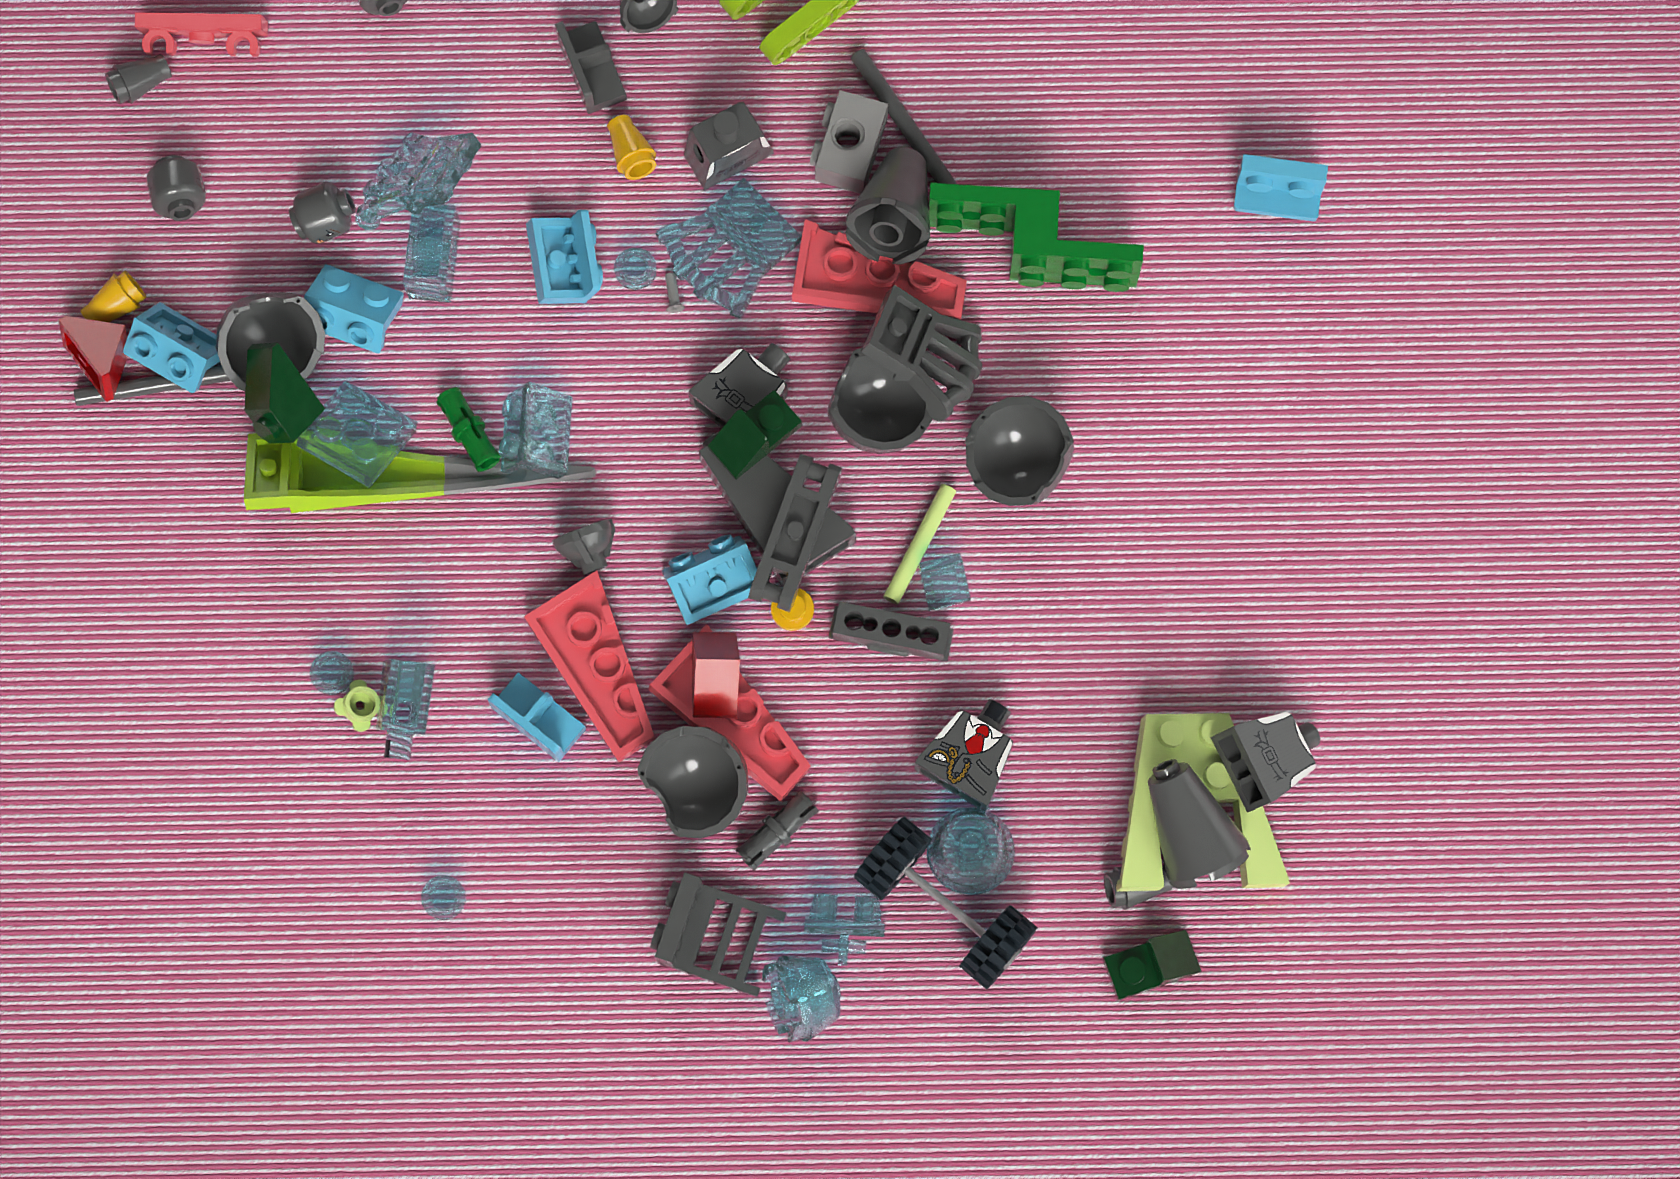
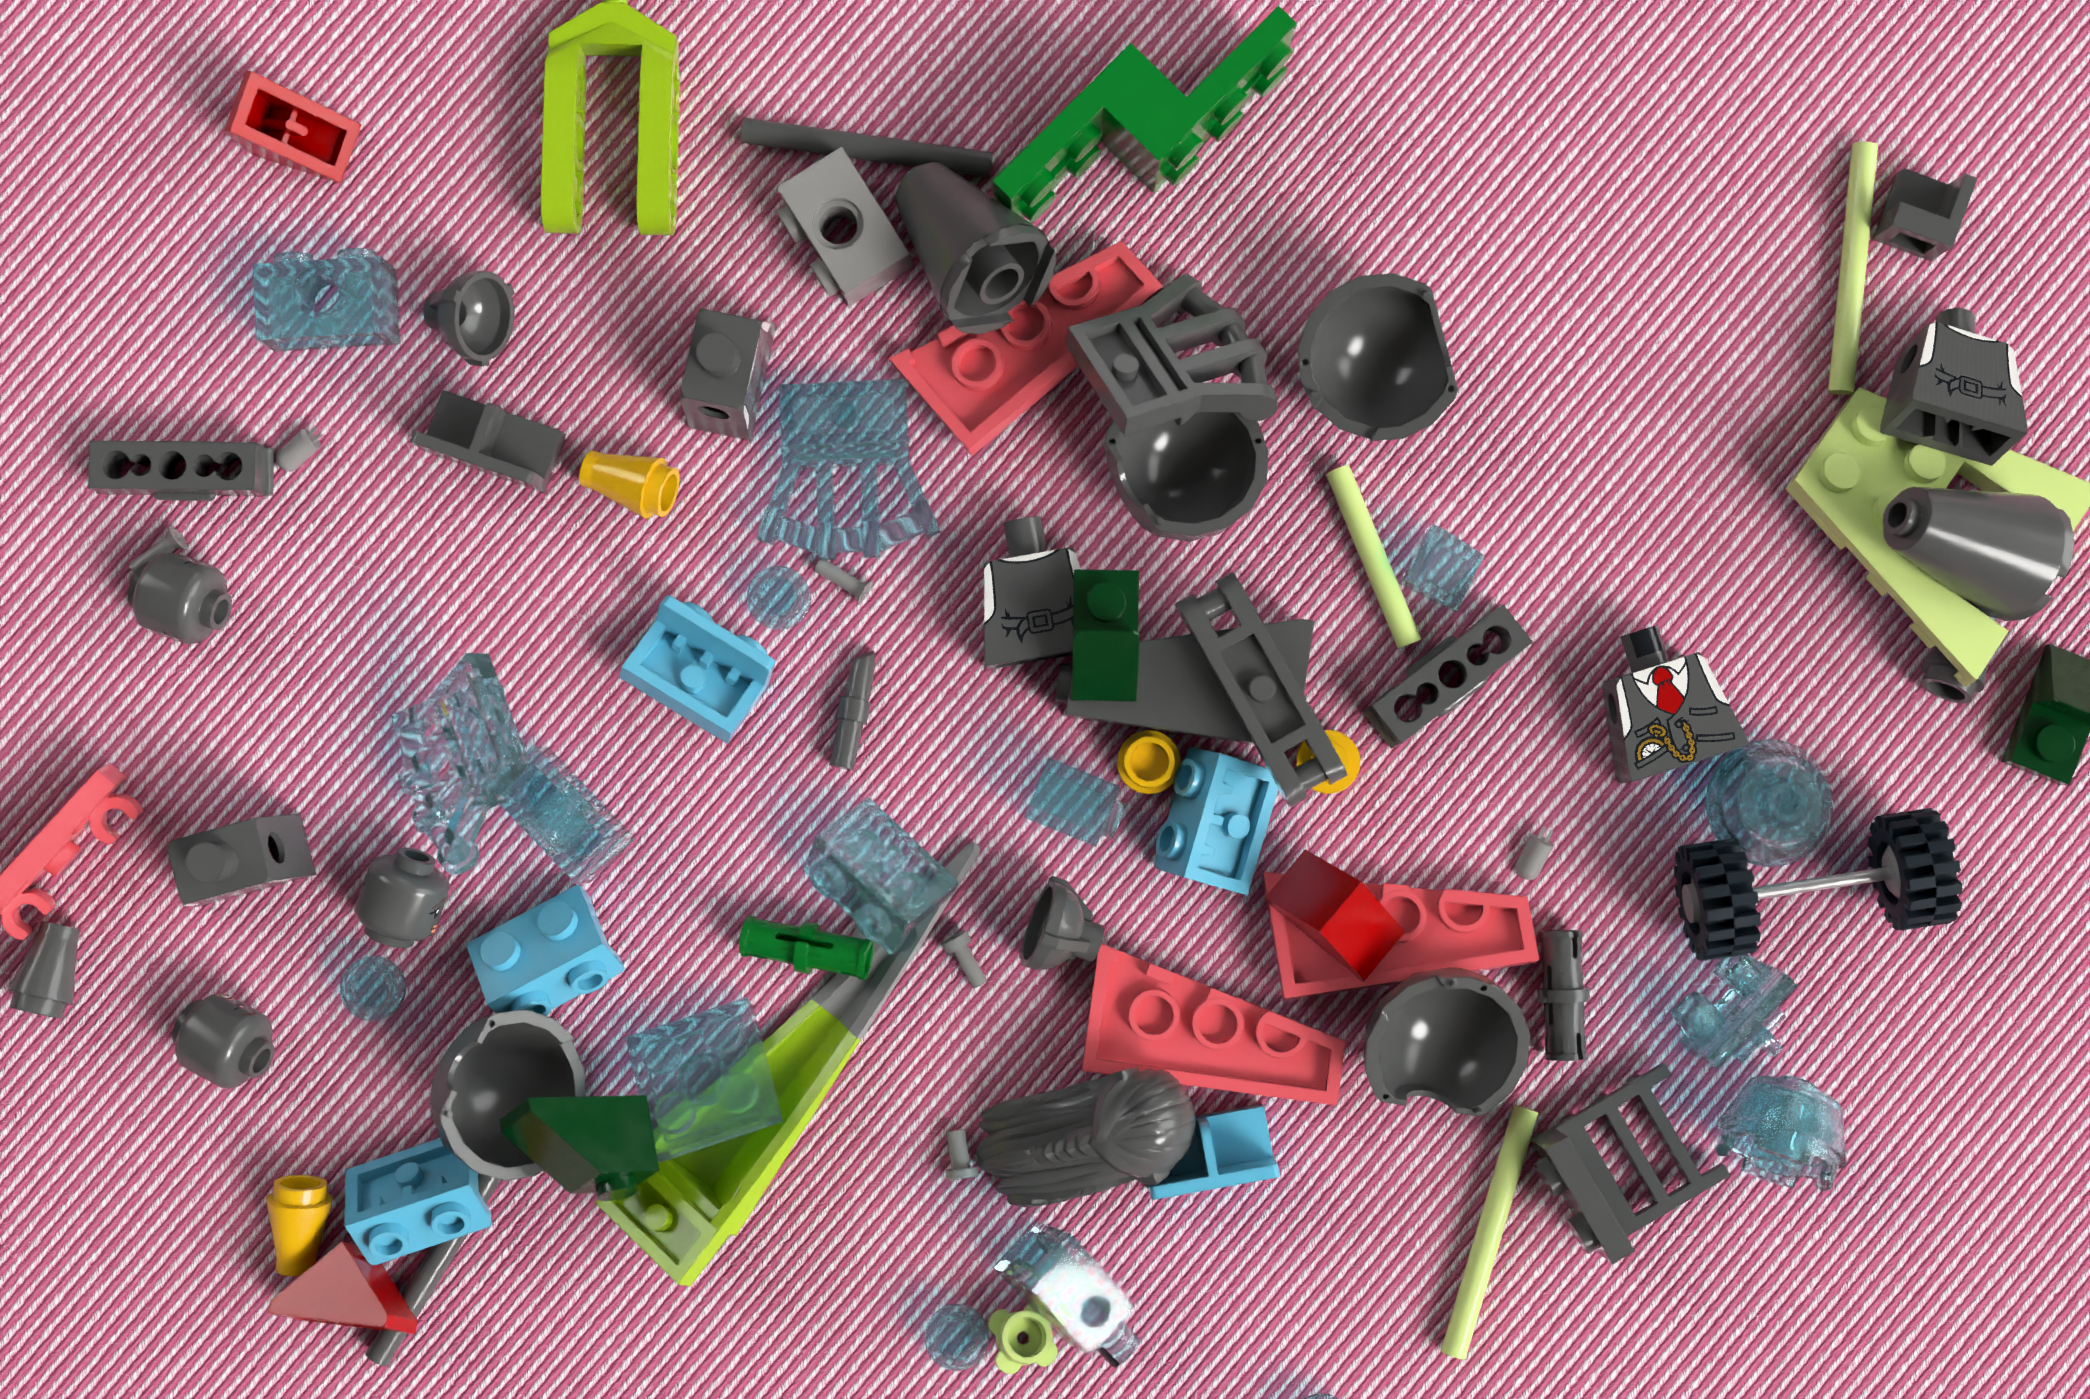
camera: 50 degrees left, 10 degrees up
(263, 238) = (373, 988): none -> clear light blue plate
(268, 117) = (238, 859): none -> dark grey torso
(424, 599) = (959, 1156): none -> light grey piece
(493, 645) = (1087, 1137): none -> dark grey hair
(534, 506) = (958, 945): none -> light grey piece
(609, 354) = (853, 712): none -> dark grey piece
(618, 899) = (1489, 1232): none -> yellowish green bar
(658, 498) = (1075, 803): none -> clear light blue brick
(712, 519) = (1148, 762): none -> yellow plate
(837, 757) = (1534, 855): none -> light grey piece
(1290, 660) = (1853, 268): none -> yellowish green bar
(1349, 668) = (1923, 213): none -> dark grey panel

